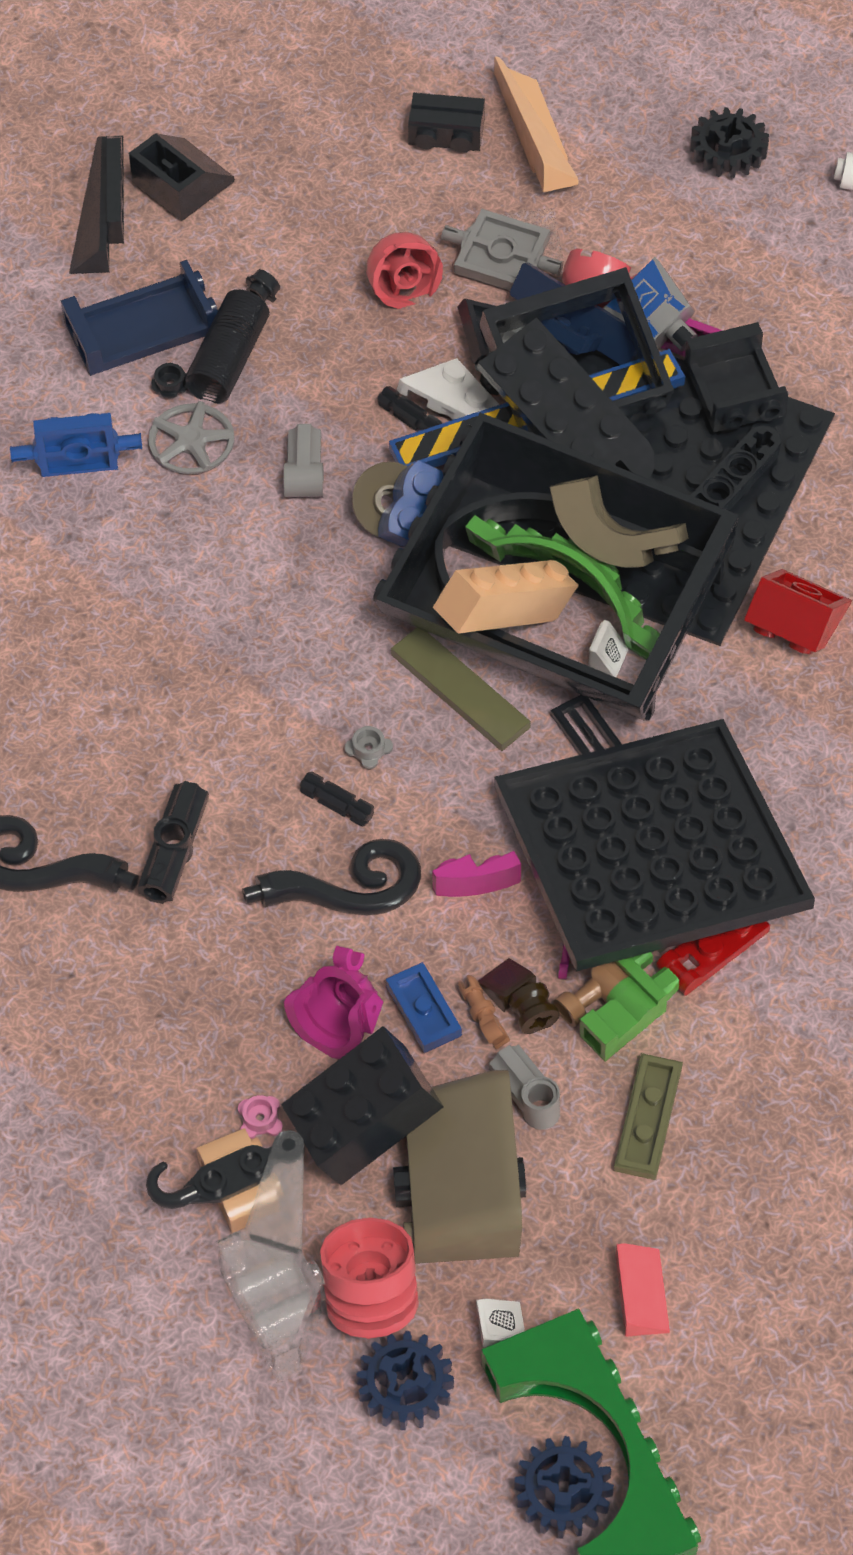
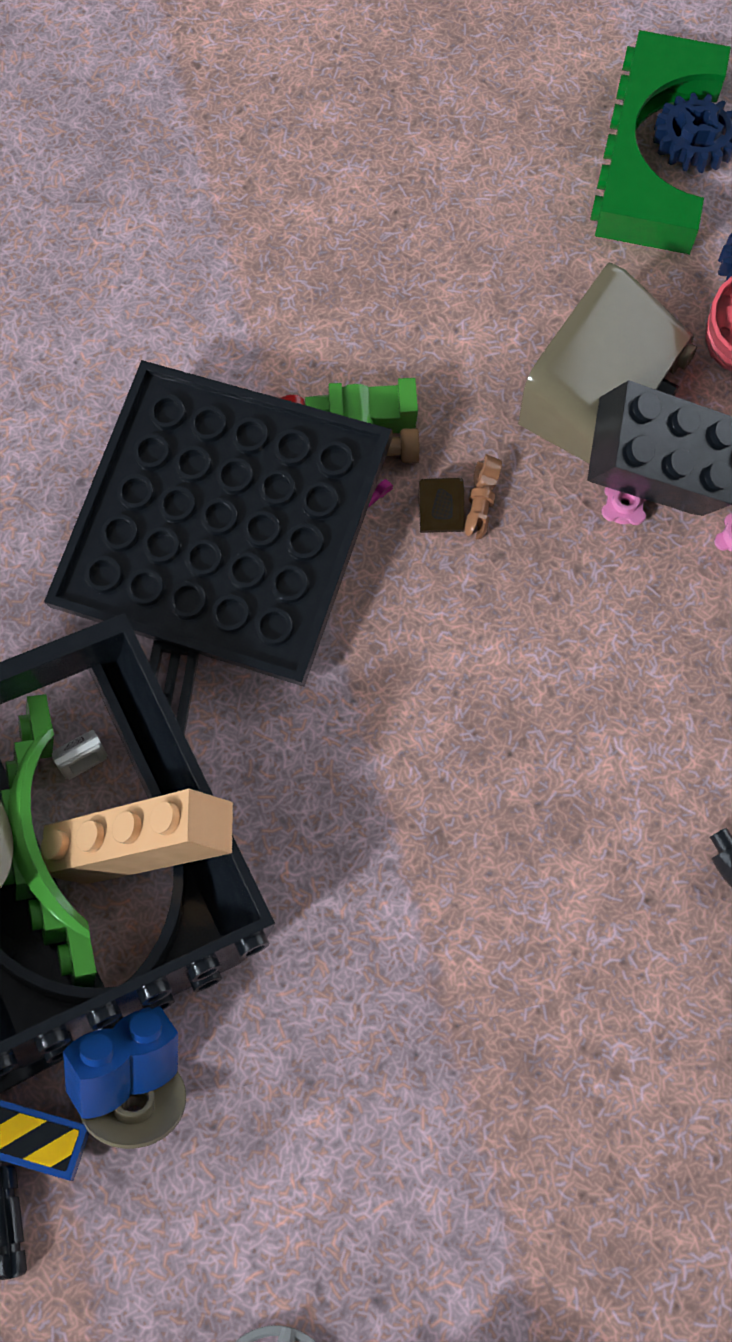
camera: 145 degrees left, 10 degrees up
(166, 860) = (633, 864): black piece -> none
(291, 885) = (567, 725): black plant -> none
(304, 468) = (187, 1228): light grey piece -> none
(335, 1005) = (609, 567): dark pink helmet -> none
(337, 798) = (456, 788): black axle -> none
(368, 736) = (383, 808): light grey plate -> none
(423, 1007) = (532, 531): blue plate -> none
(461, 688) = (243, 782): olive tile -> none
(464, 878) = (409, 617): dark pink slope -> none
(498, 1320) = (658, 263): white slope -> none
(528, 1087) = (498, 406): light grey piece -> none
(533, 1008) = (441, 458): dark brown wheel -> none
(641, 1290) = (532, 221): coral slope -> none
(648, 1116) = (416, 333): olive tile -> none

